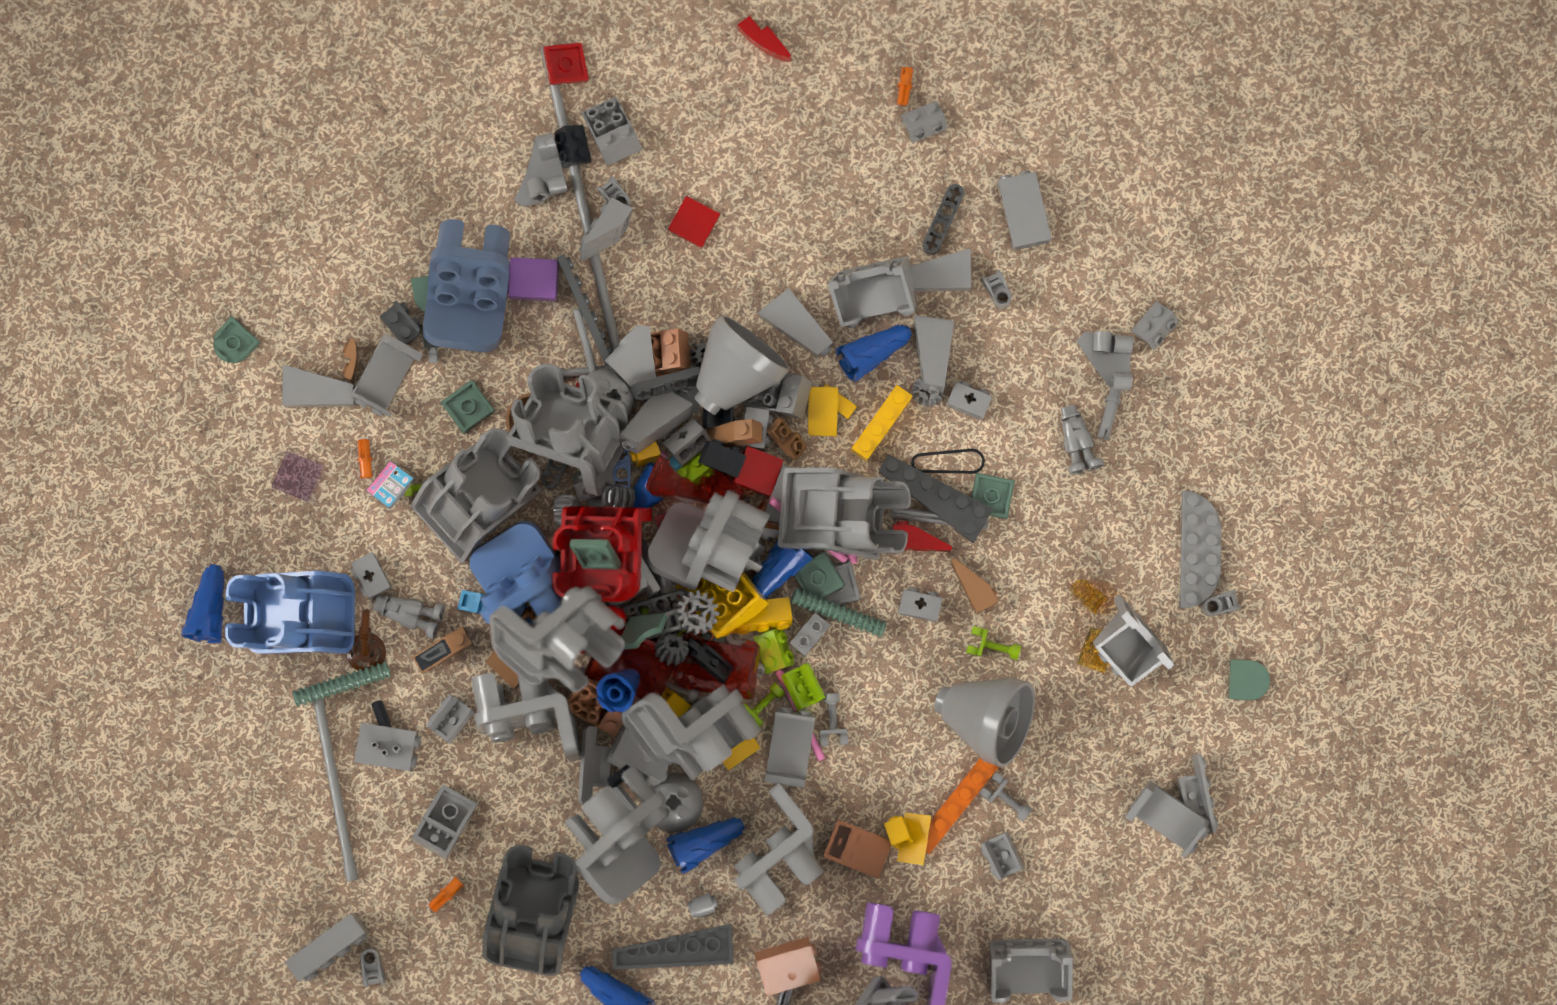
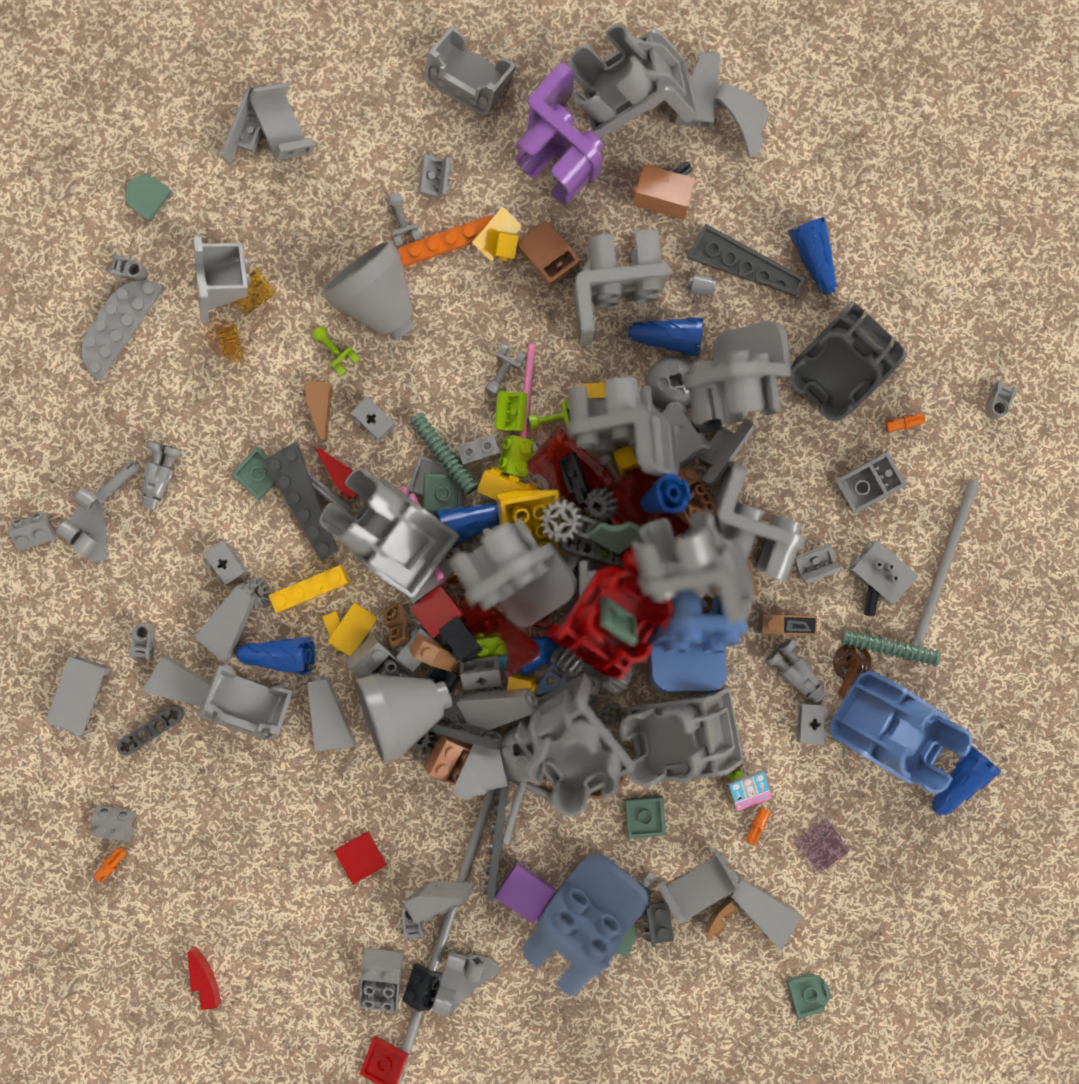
camera: 140 degrees left, 5 degrees up
(328, 946) = (1030, 436): light grey brick -> none
(470, 602) = (741, 652): dark azure bracket -> none
(790, 747) = (552, 368): light grey panel -> none
(947, 452) = (269, 531): black piece -> none

